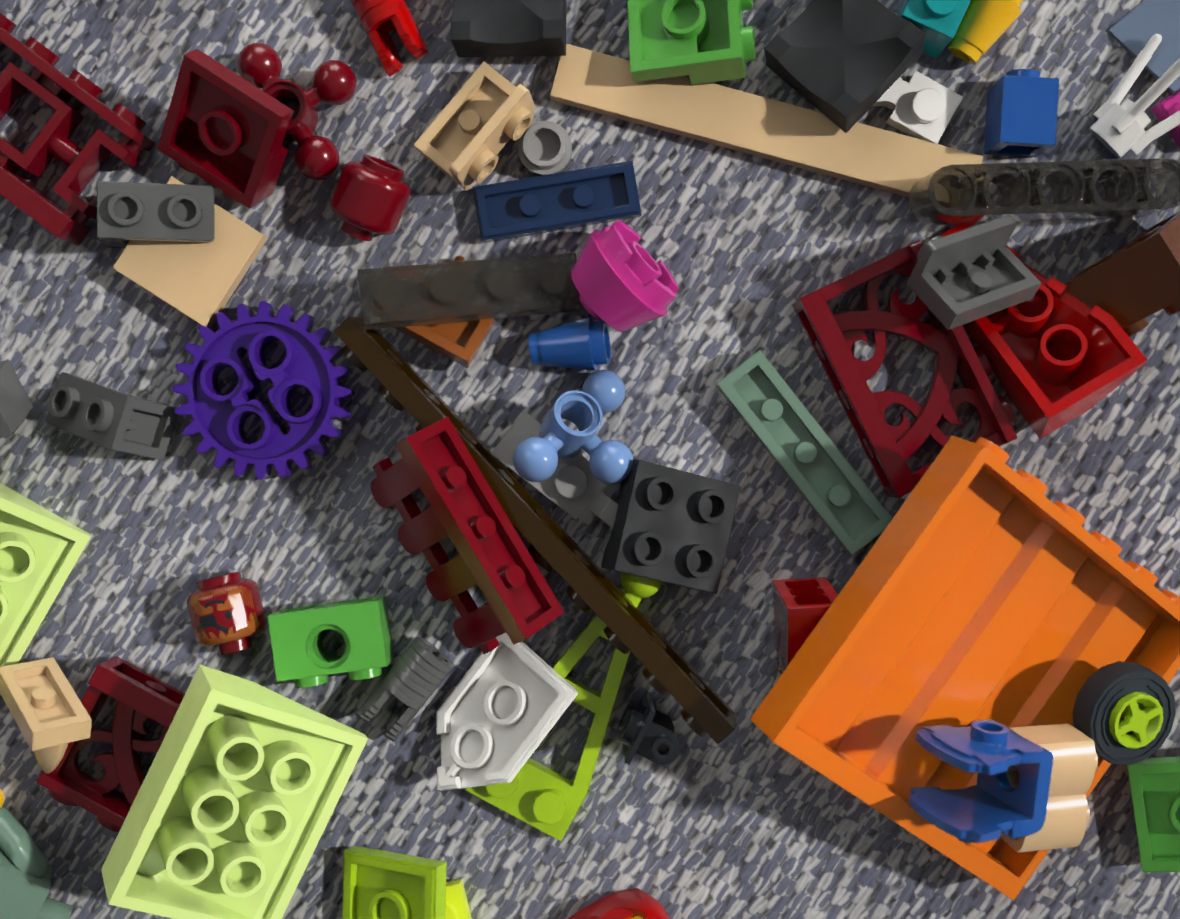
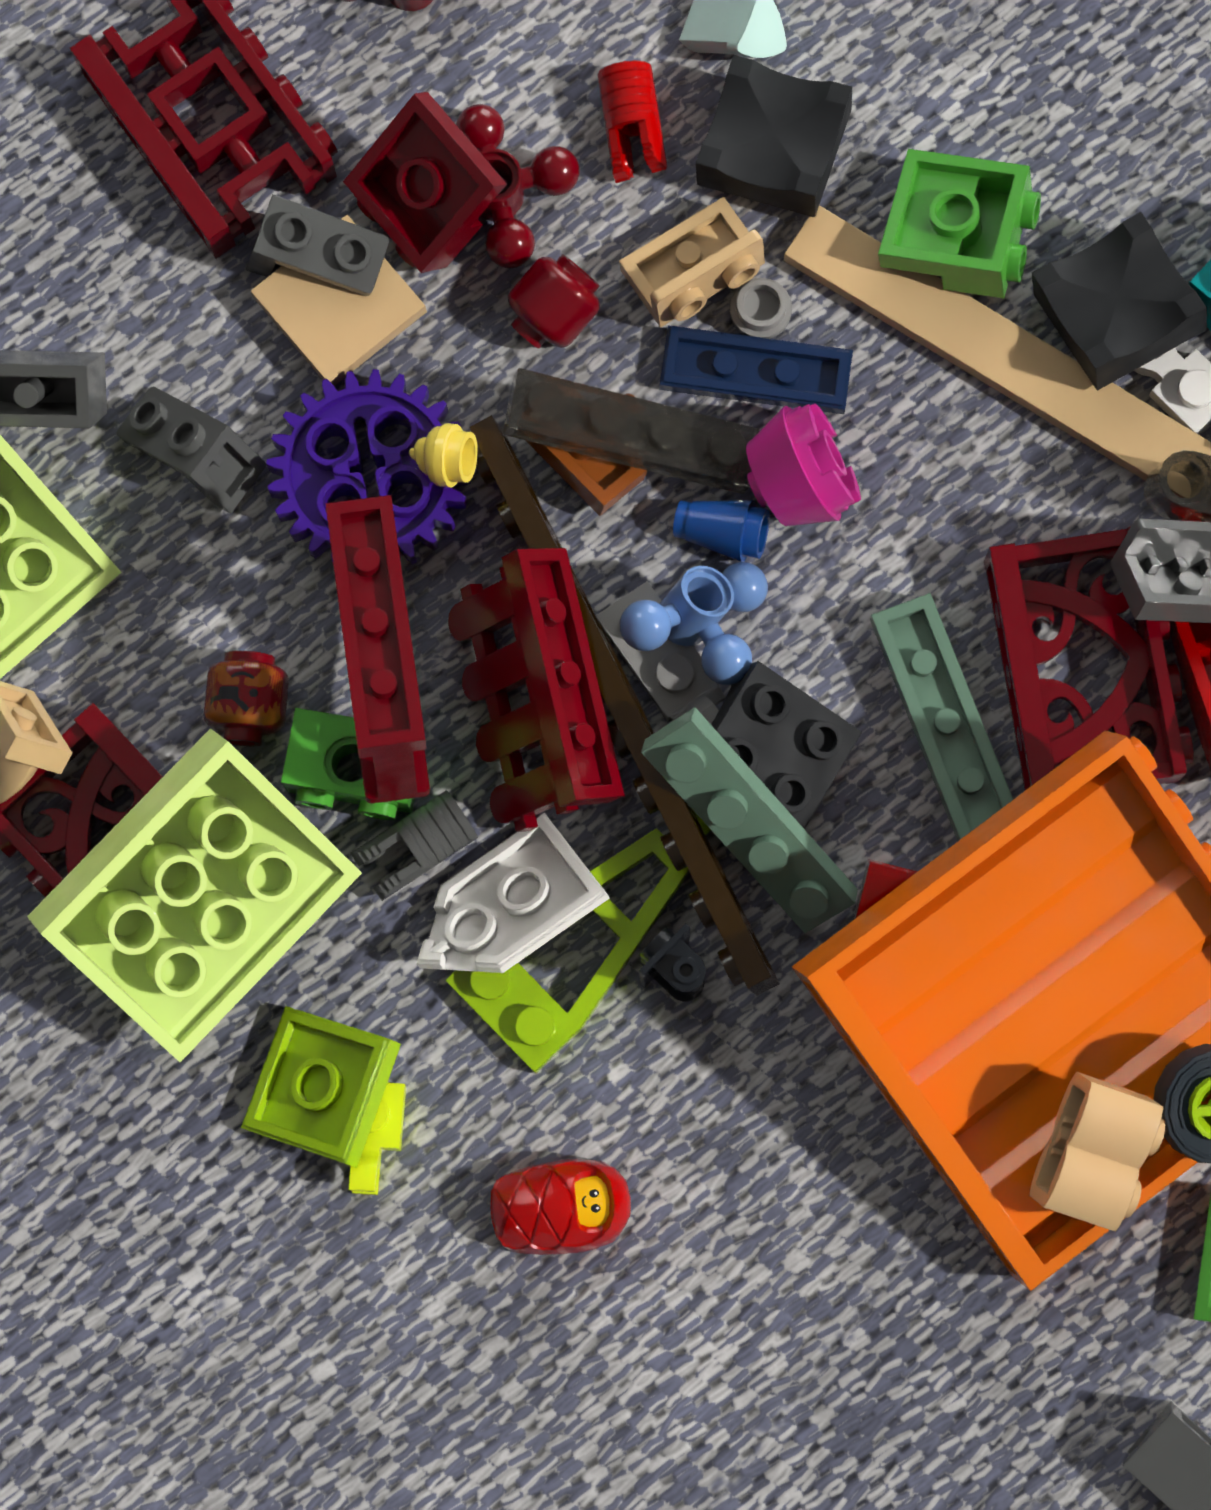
camera: 30 degrees right, 10 degrees down
(312, 563) = (378, 649): none -> dark red fence
(322, 363) = (446, 455): none -> light yellow plate
(670, 594) = (749, 820): none -> sand green plate
(992, 805) = (1041, 1138): blue piece -> none

